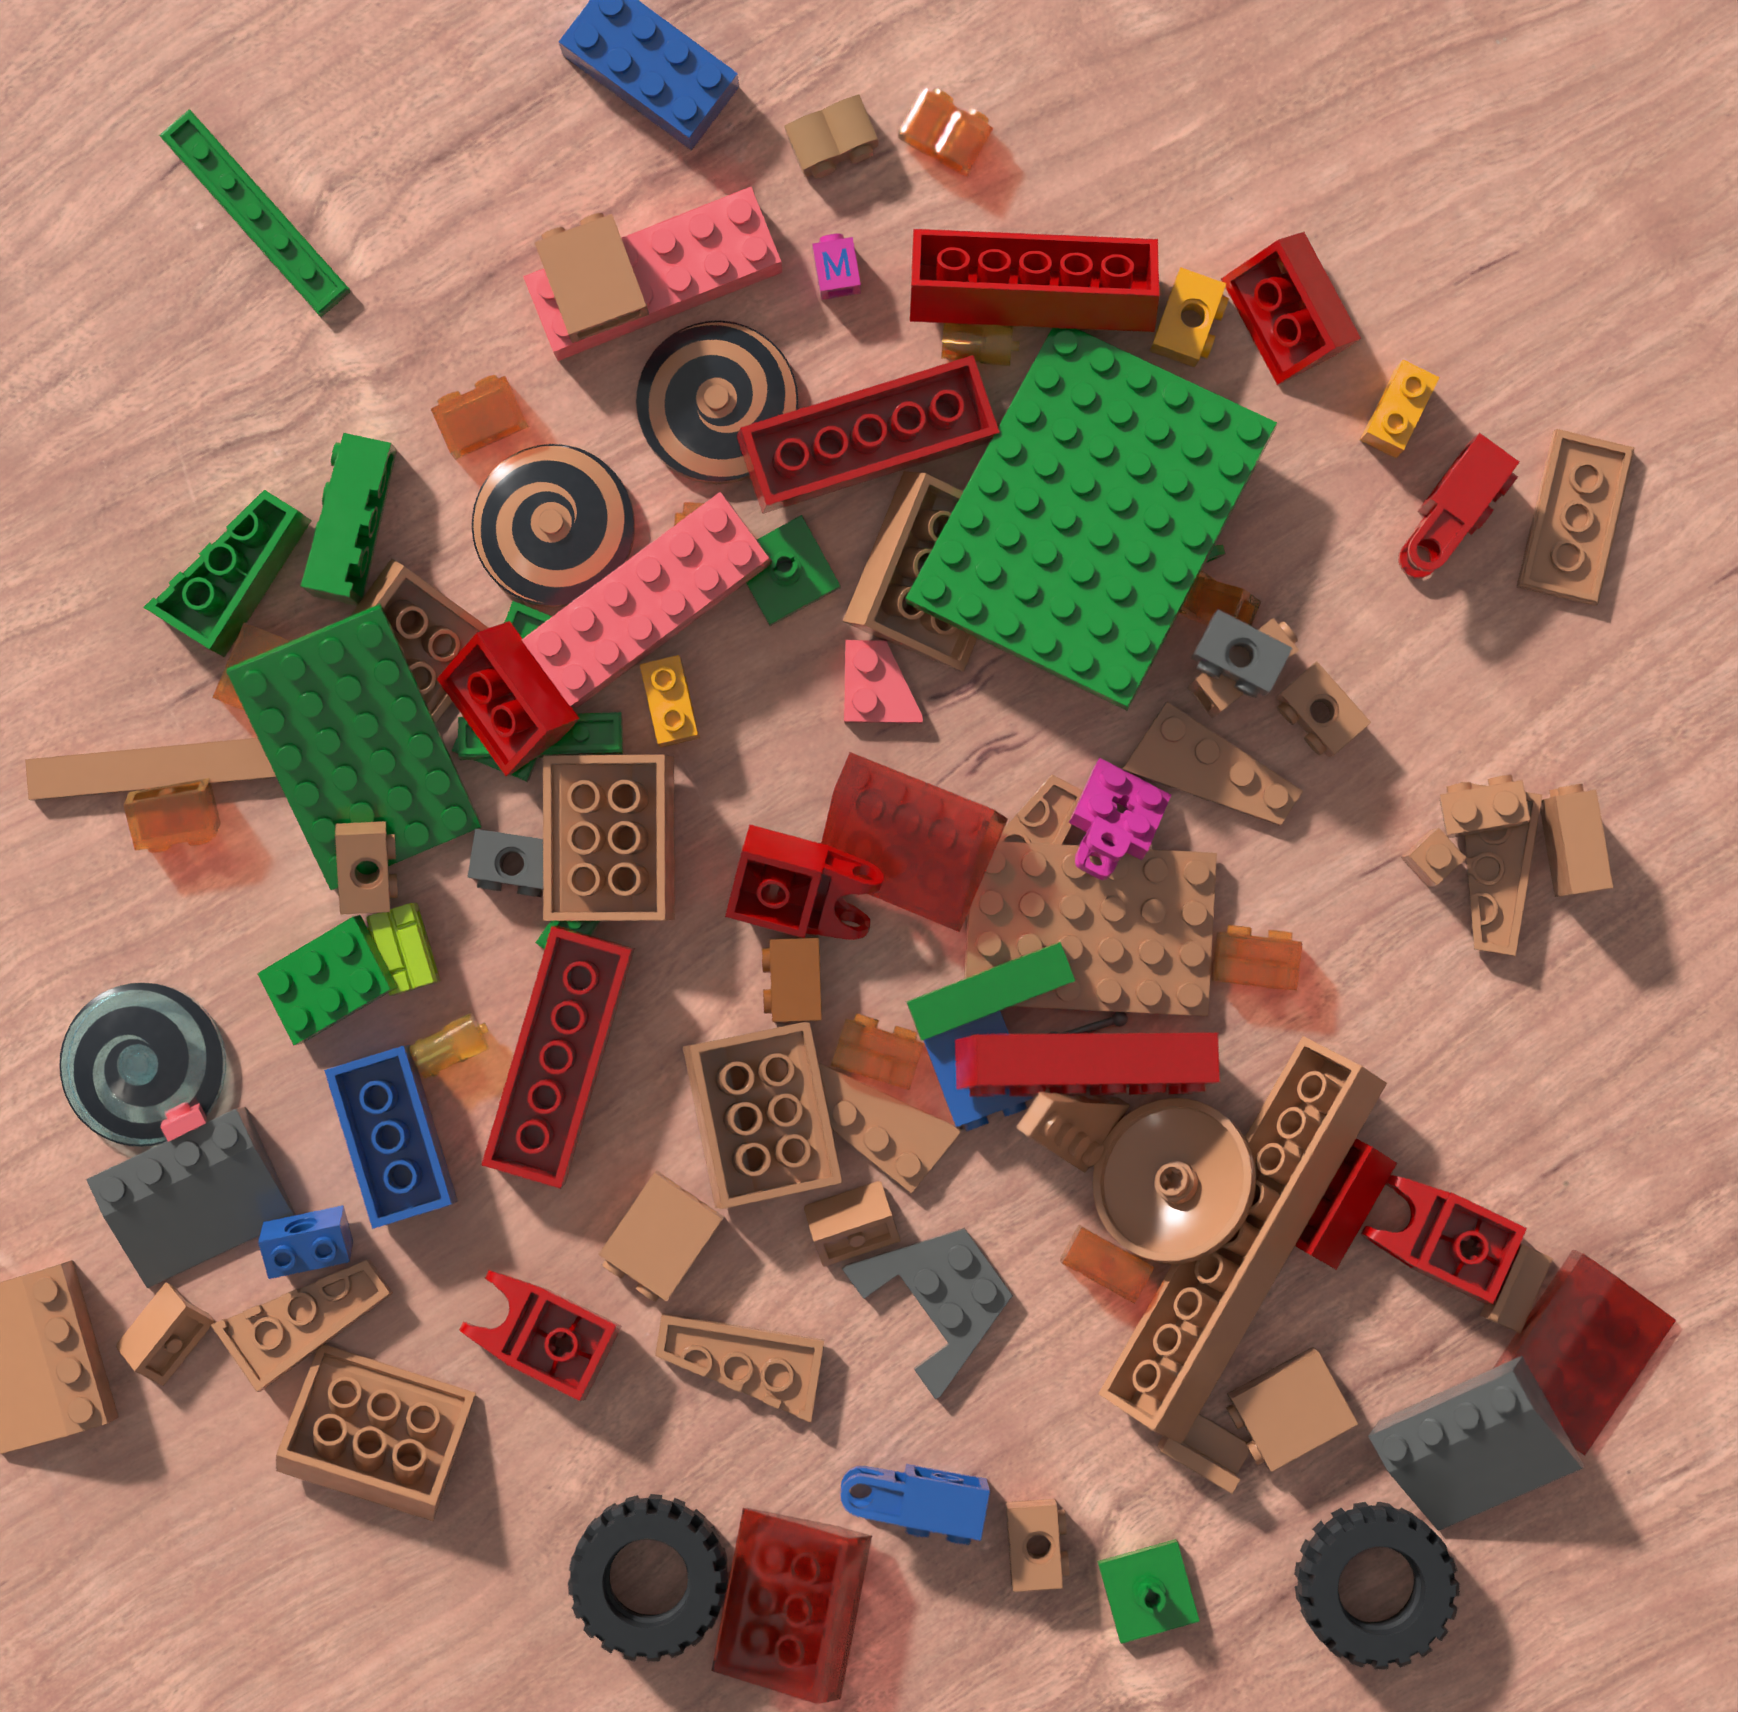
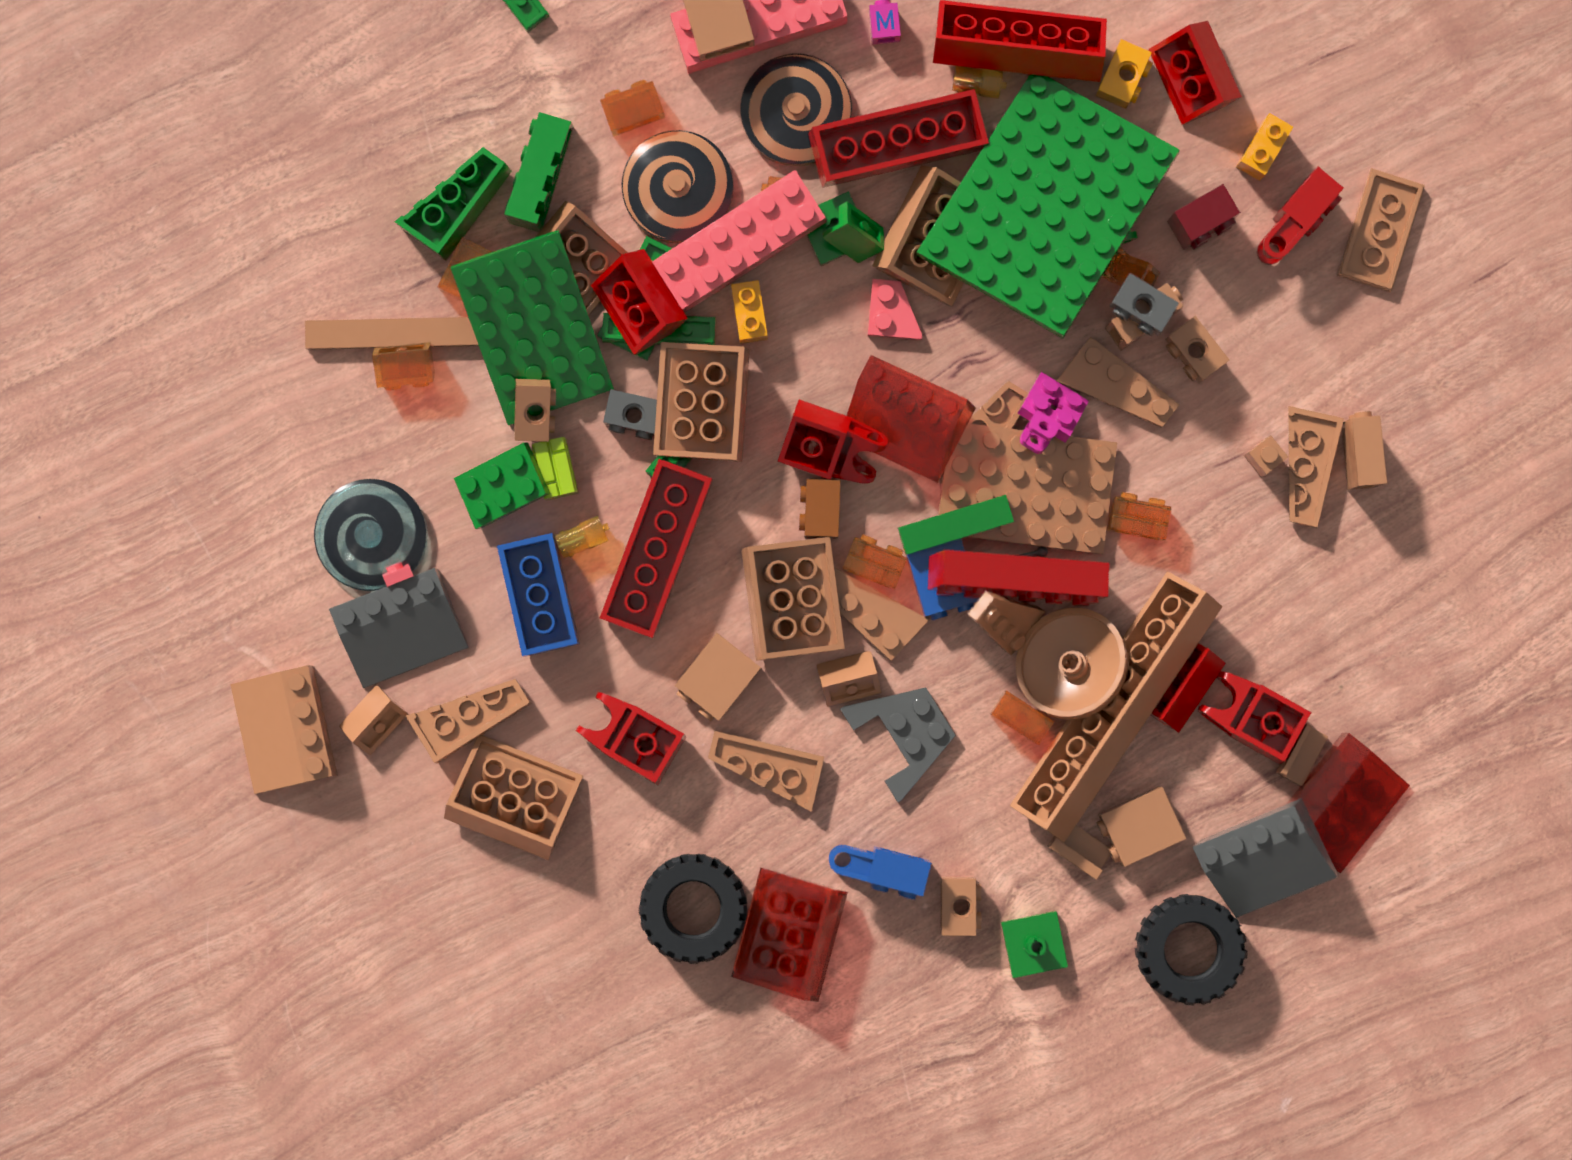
camera: 10 degrees right, 0 degrees up
(305, 1242) = (475, 663): blue brick -> none
(816, 577) = (855, 234): none -> green panel
(1318, 517) = (1204, 216): none -> dark red brick
(1484, 808) = (1303, 424): nougat brick -> none

